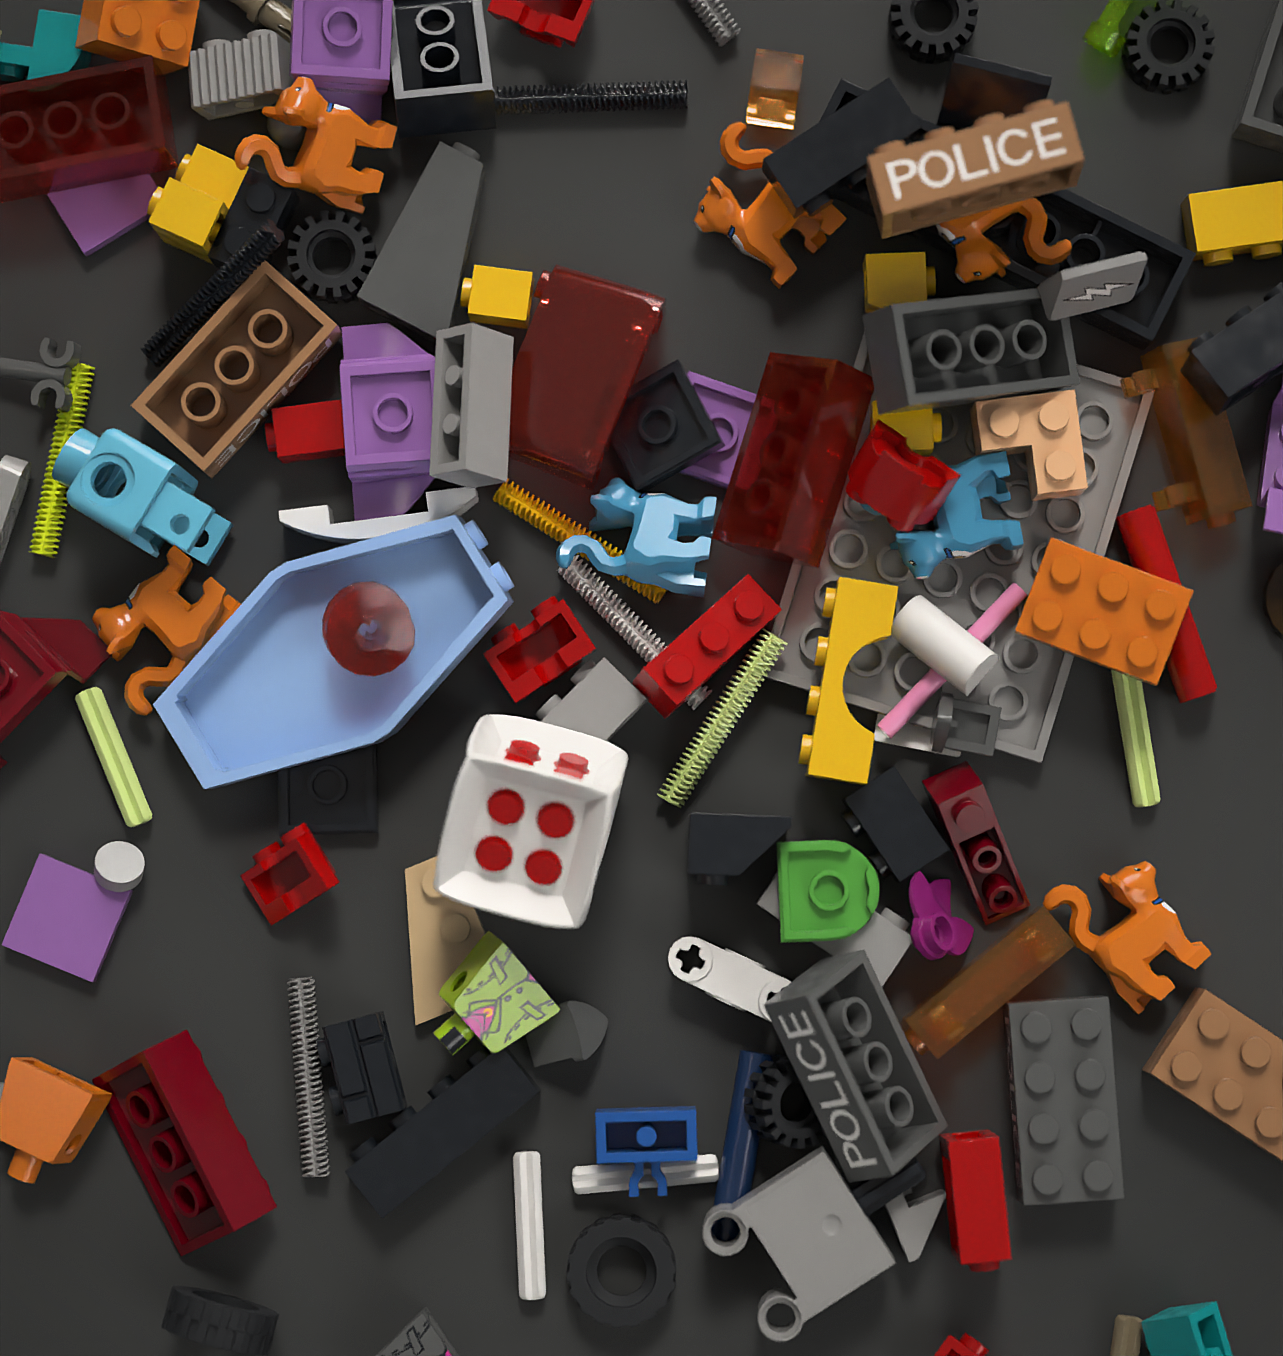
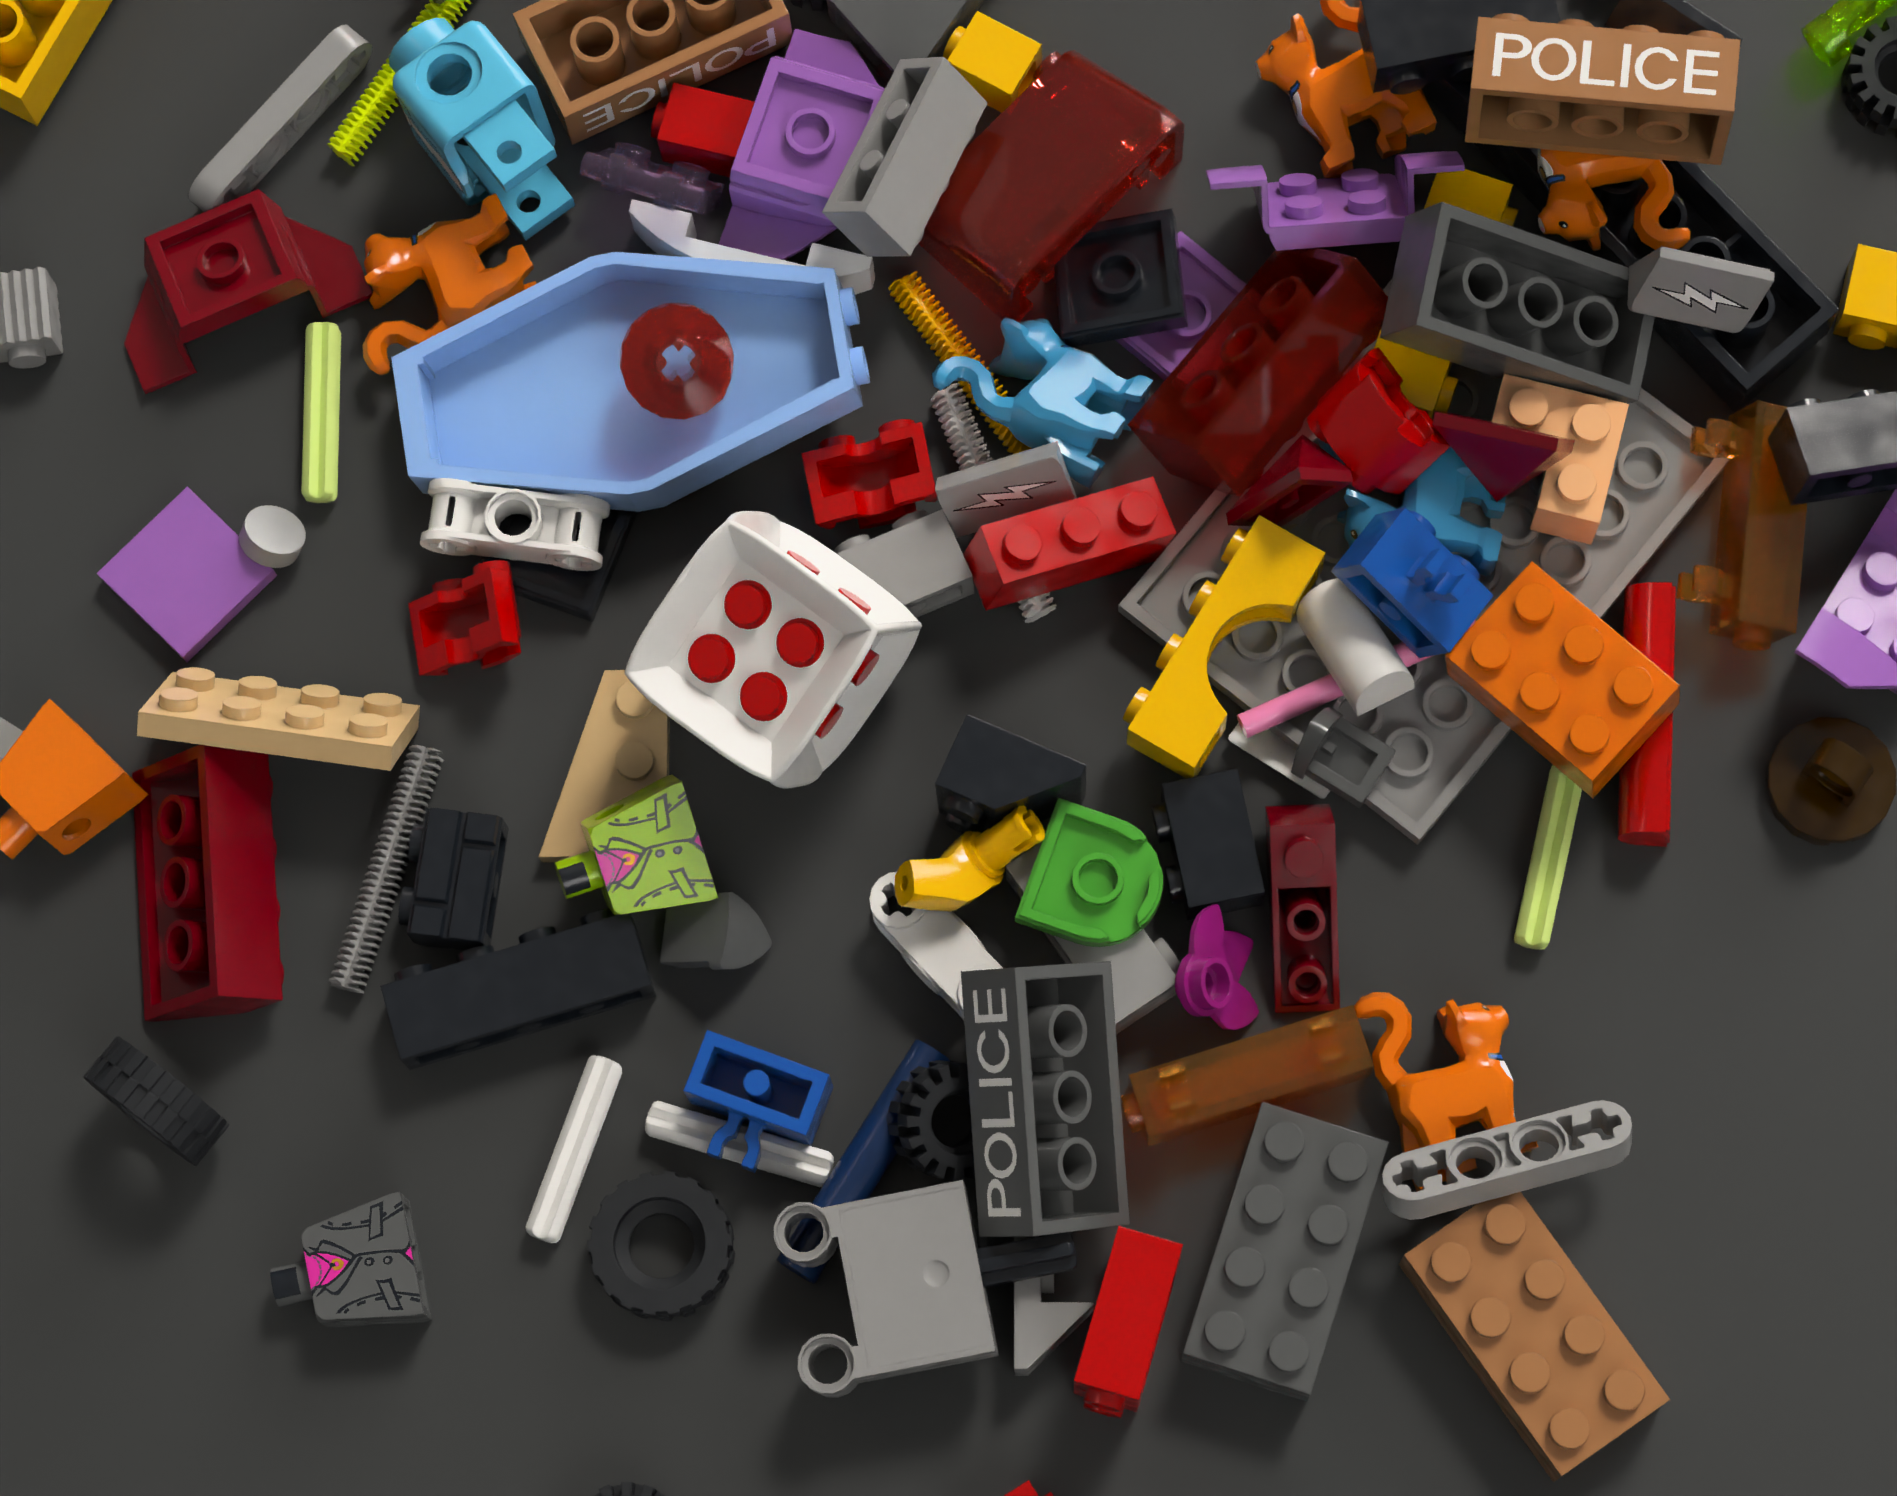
camera: 25 degrees right, 10 degrees down
(186, 1006) = (279, 720): none -> tan plate
(267, 797) = (483, 508): none -> white piece
(270, 488) = (672, 188): none -> clear purple plate
(643, 624) = (1004, 488): none -> light grey slope
(723, 718) = (1055, 638): yellowish green axle -> none
(731, 916) = (968, 865): none -> yellow arm
(801, 313) = (1337, 210): none -> medium lavender piece
(853, 541) = (1291, 486): none -> dark red slope
(971, 584) = (1413, 582): none -> blue brick
(997, 464) = (1499, 453): none -> dark red slope
(1204, 984) = (1512, 1169): none -> light grey beam

